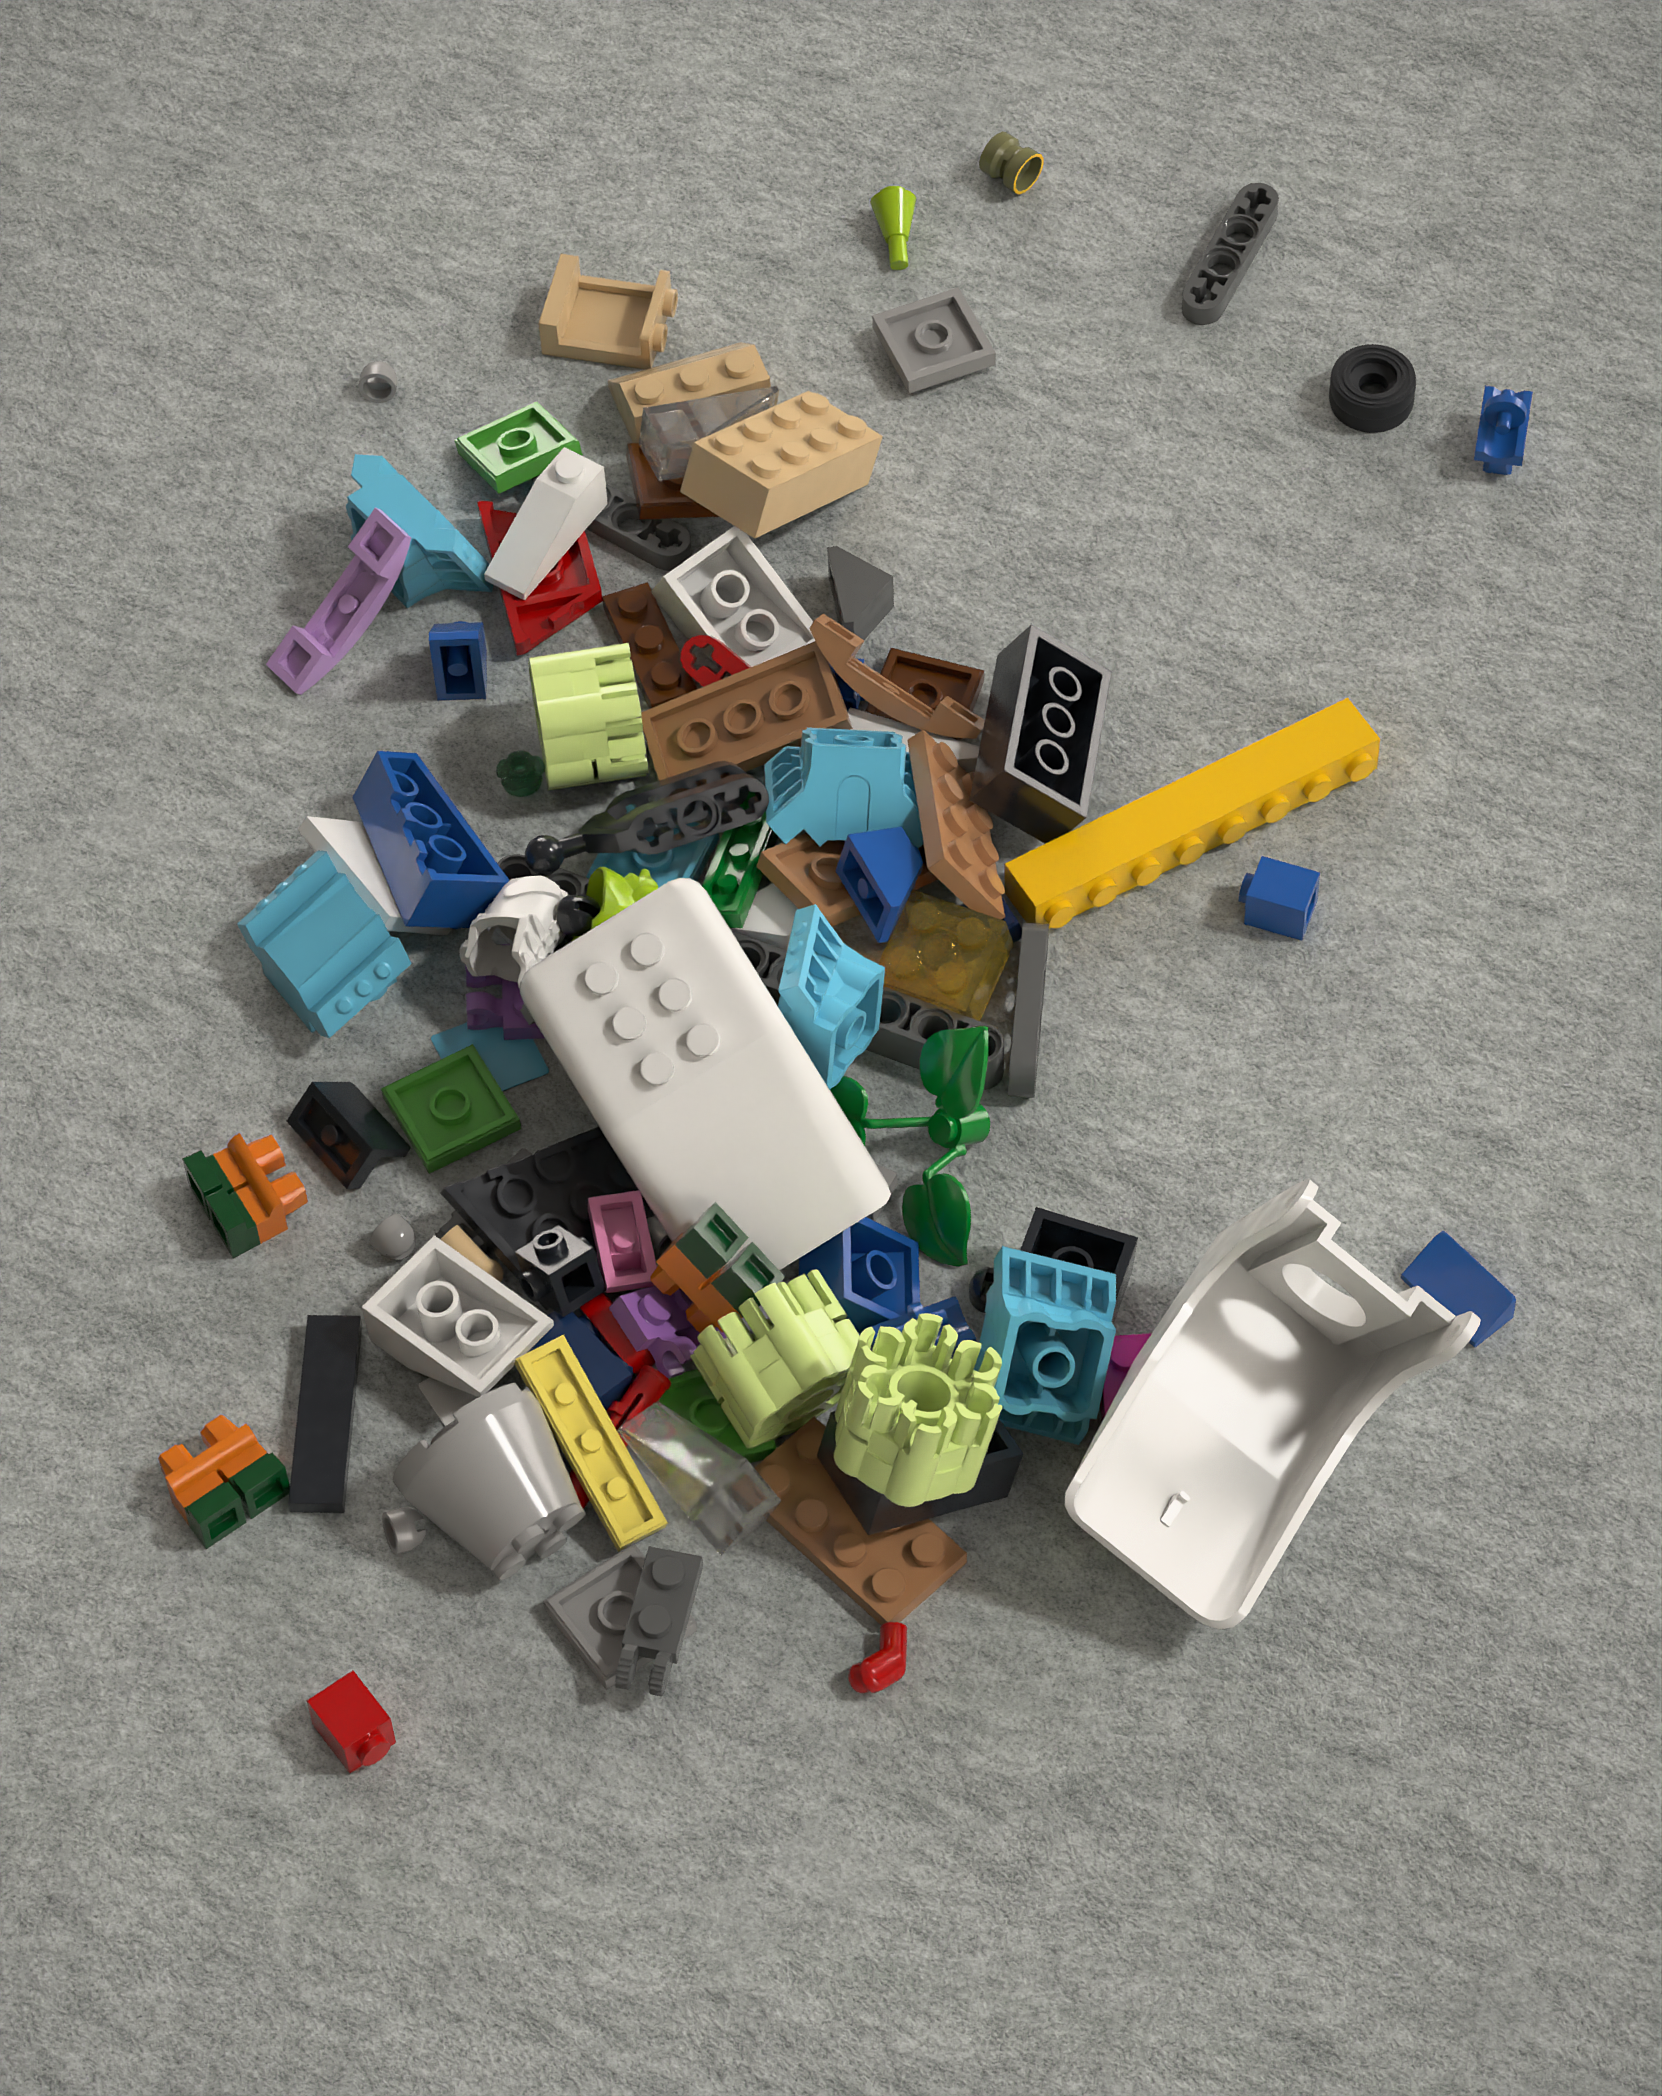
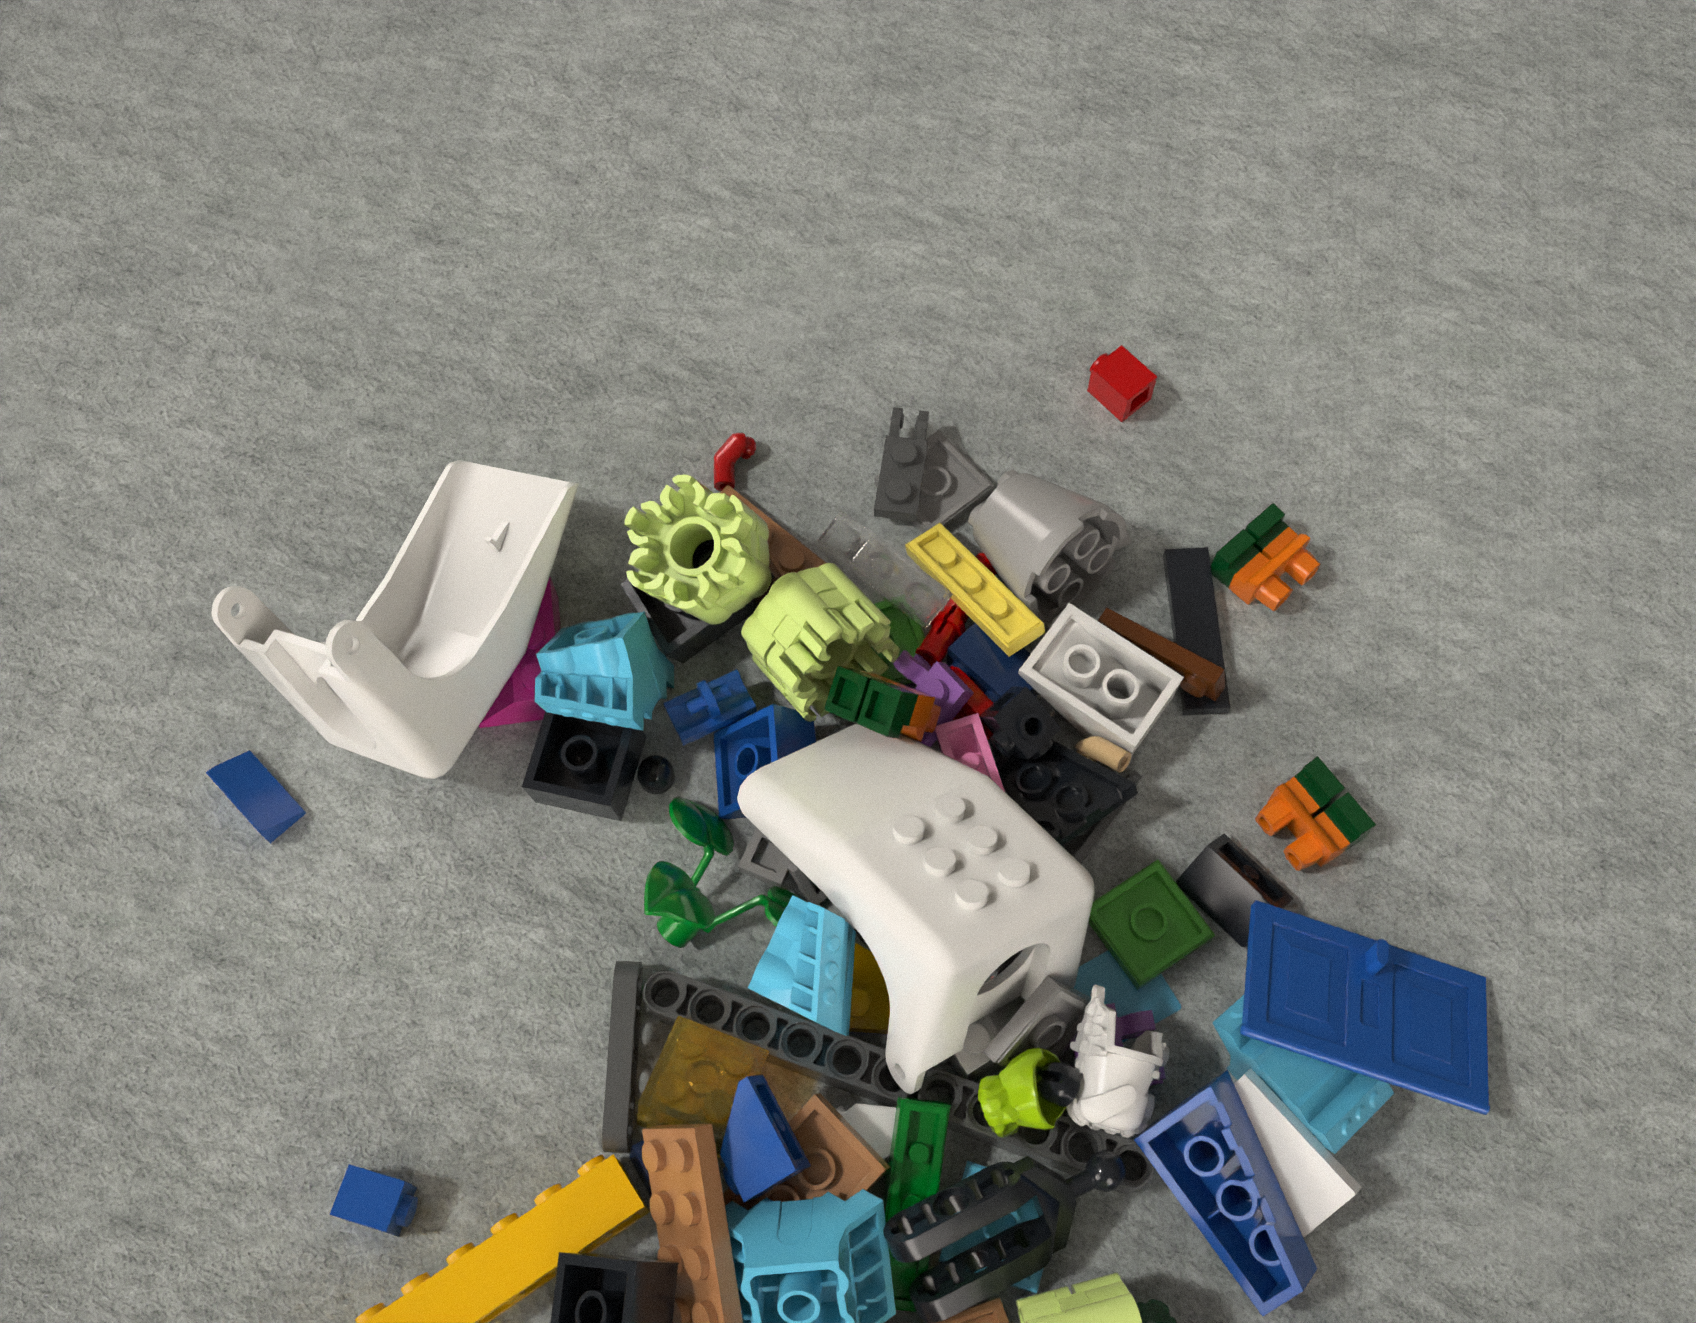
camera: 175 degrees right, 10 degrees up
(245, 989) = (1366, 1007): none -> blue door
(379, 1359) = (1199, 674): none -> reddish brown plate
(394, 1238) = (1171, 783): light grey hinge -> none

